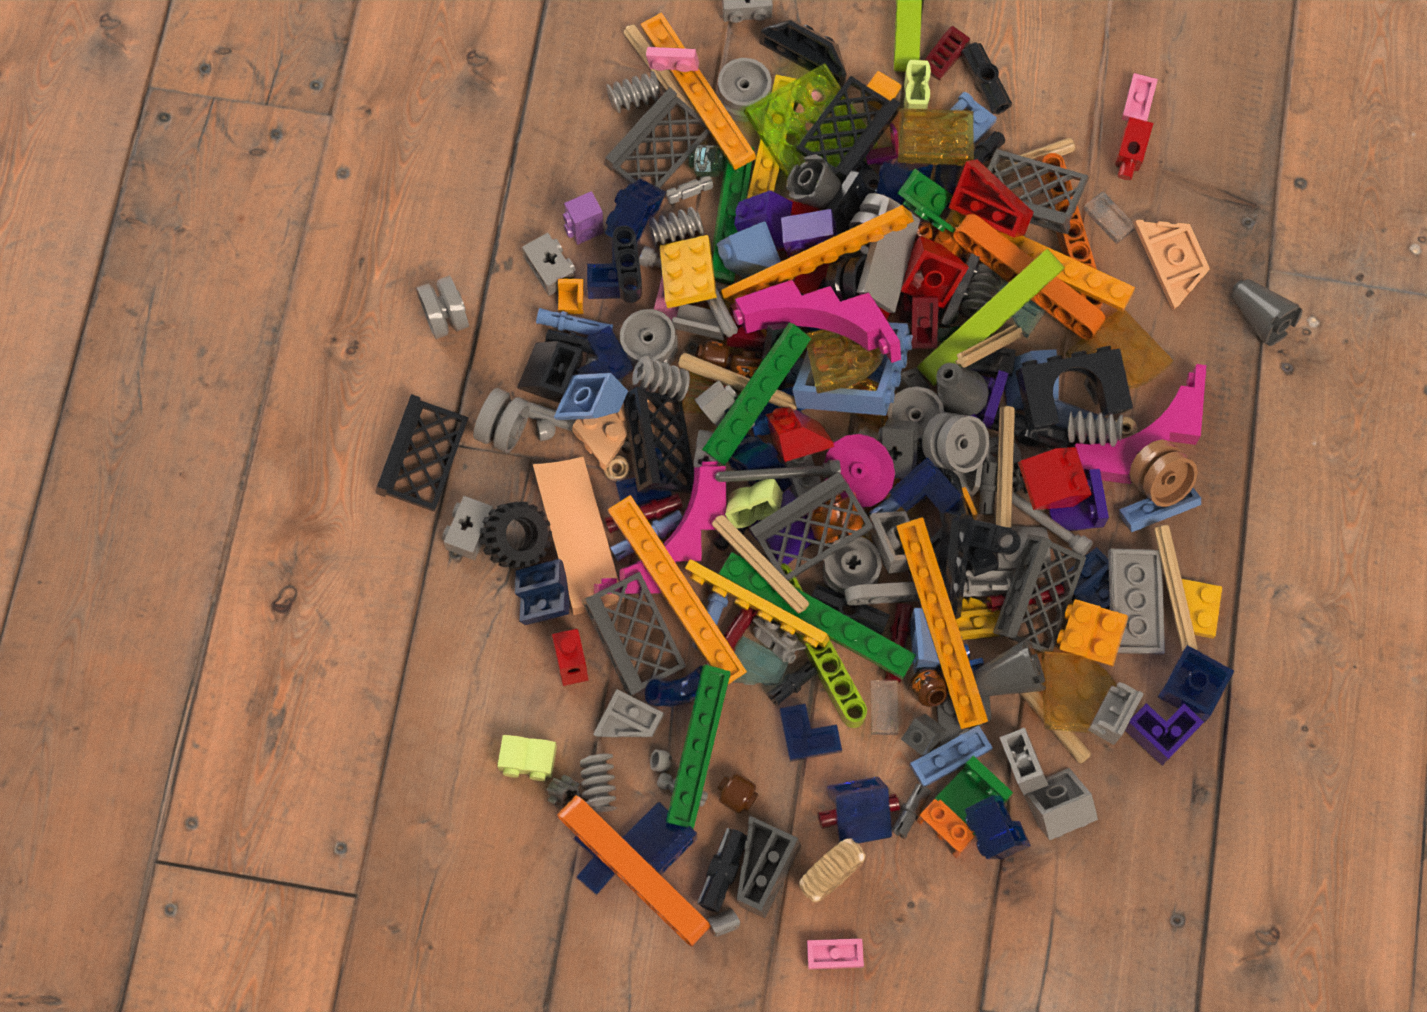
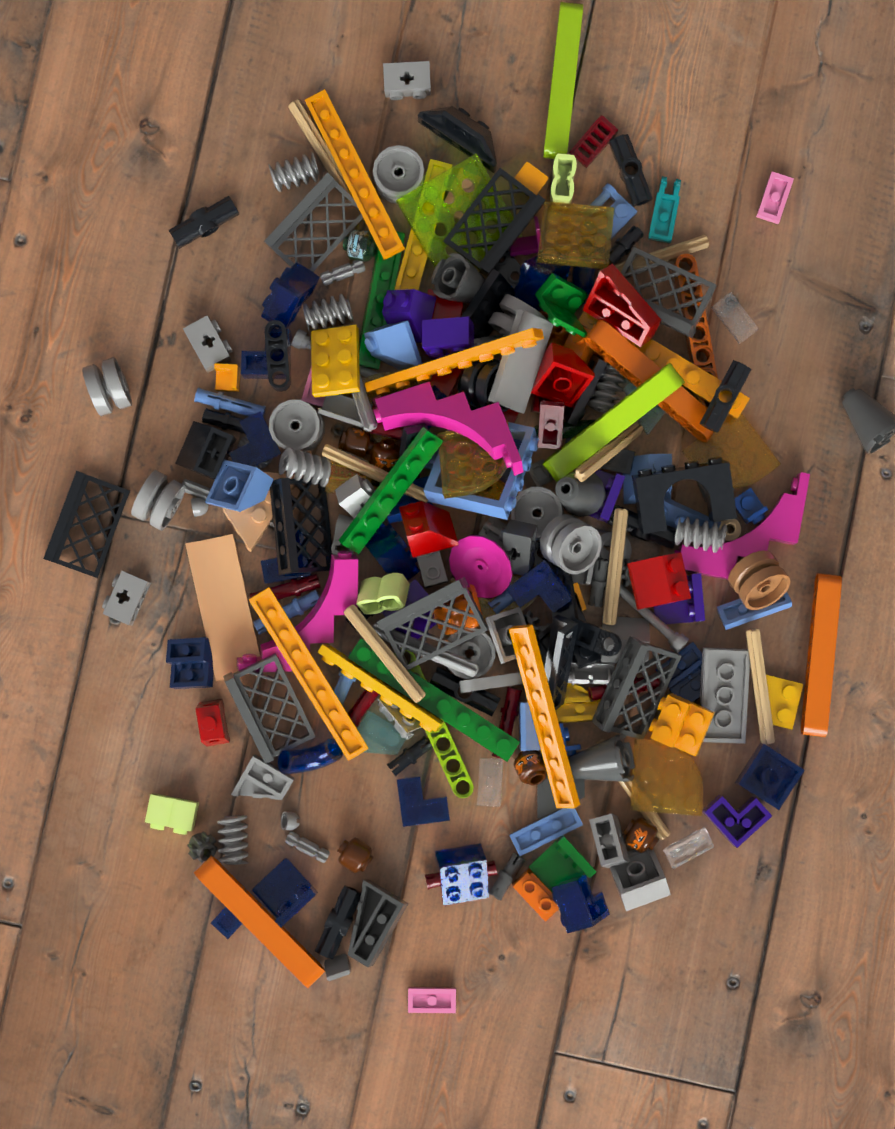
camera: 10 degrees right, 15 degrees up
(535, 535) = (180, 623): black tyre -> none
(539, 145) = (204, 222): none -> black piece
(583, 218) = (240, 302): medium lavender brick -> none
(623, 469) = (265, 552): tan plate -> none
(672, 59) = (324, 142): bright pink plate -> none
(698, 746) = (321, 815): green plate -> none
(826, 470) = (452, 565): dark grey piece -> none
(826, 566) = (446, 658): none -> light grey axle
(832, 870) = (433, 931): tan gear -> none
(923, 734) = (522, 811): dark grey brick -> none
(1025, 118) = (664, 212): none -> teal hinge
(1058, 755) = (641, 835): none -> reddish brown head
(1103, 295) = (732, 382): none -> black piece
(1113, 768) = (688, 848): none -> clear plate
(1115, 712) = (694, 802): light grey hinge -> none
(1133, 147) = (765, 241): red torso -> none
(1145, 406) = (750, 507): none -> blue bracket
(1174, 257) = (791, 362): light nougat wing -> none
(1238, 556) = (821, 655): none -> orange beam

